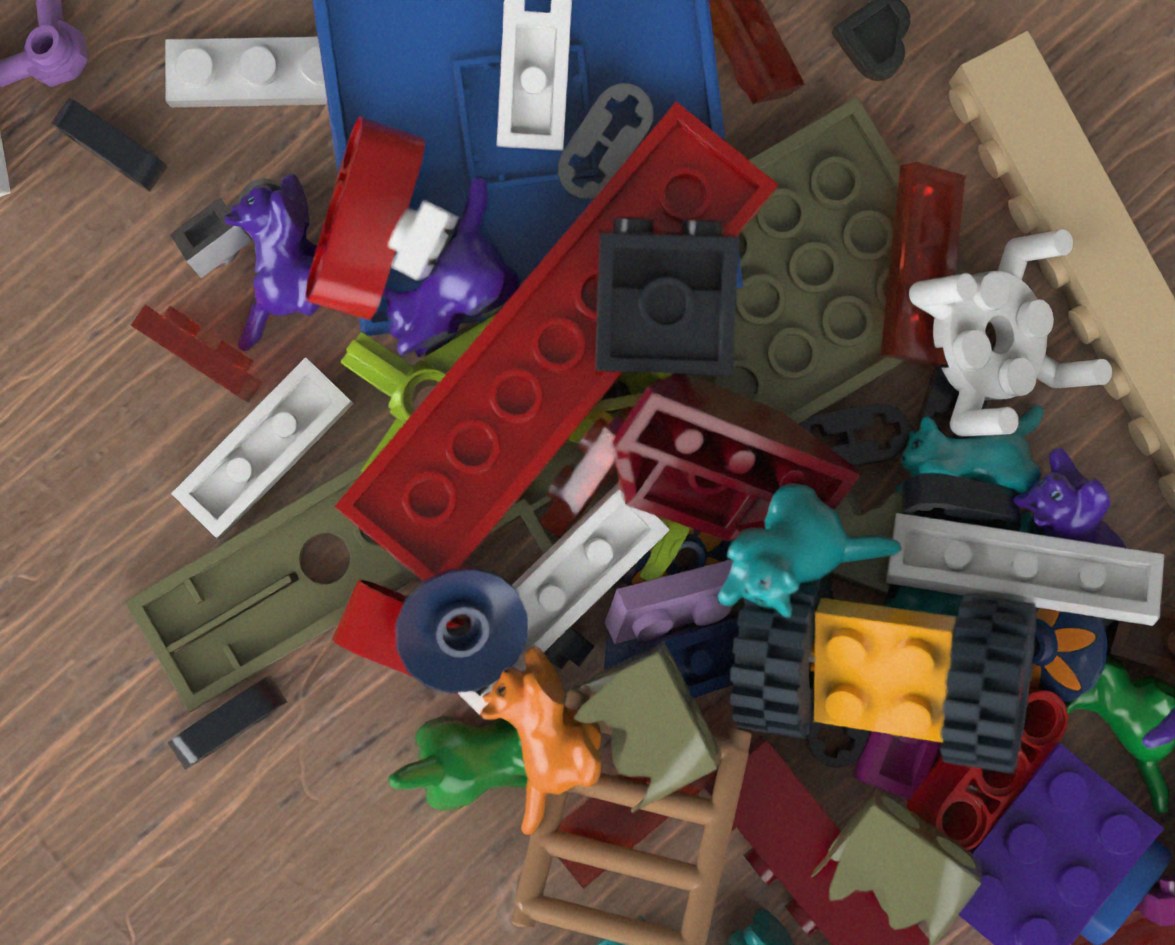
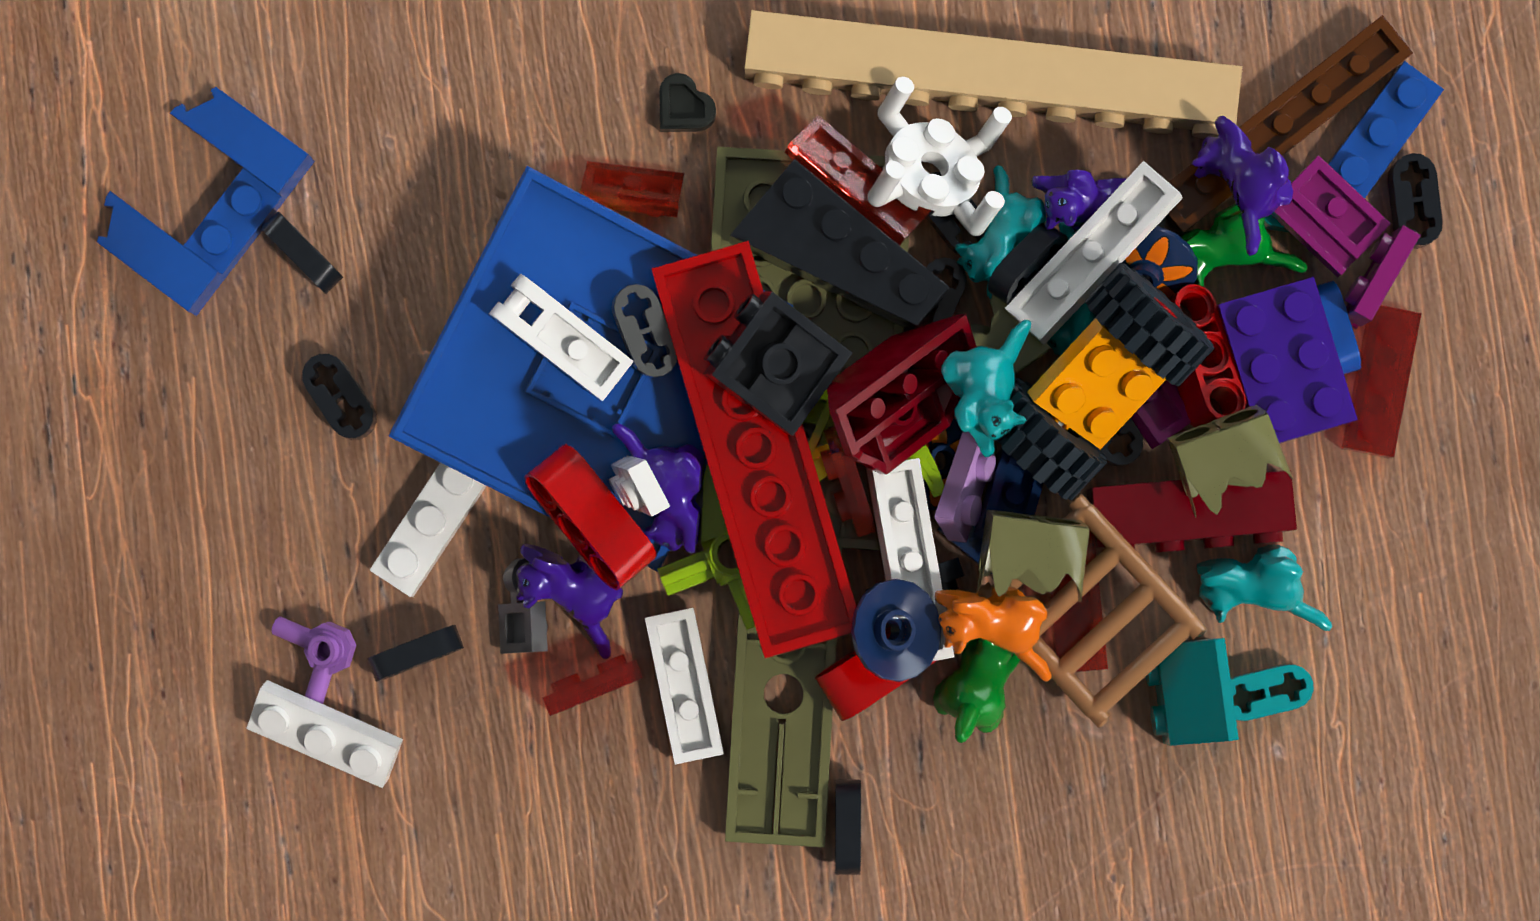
camera: 55 degrees left, 0 degrees up
(836, 282) = (828, 242): none -> black wedge

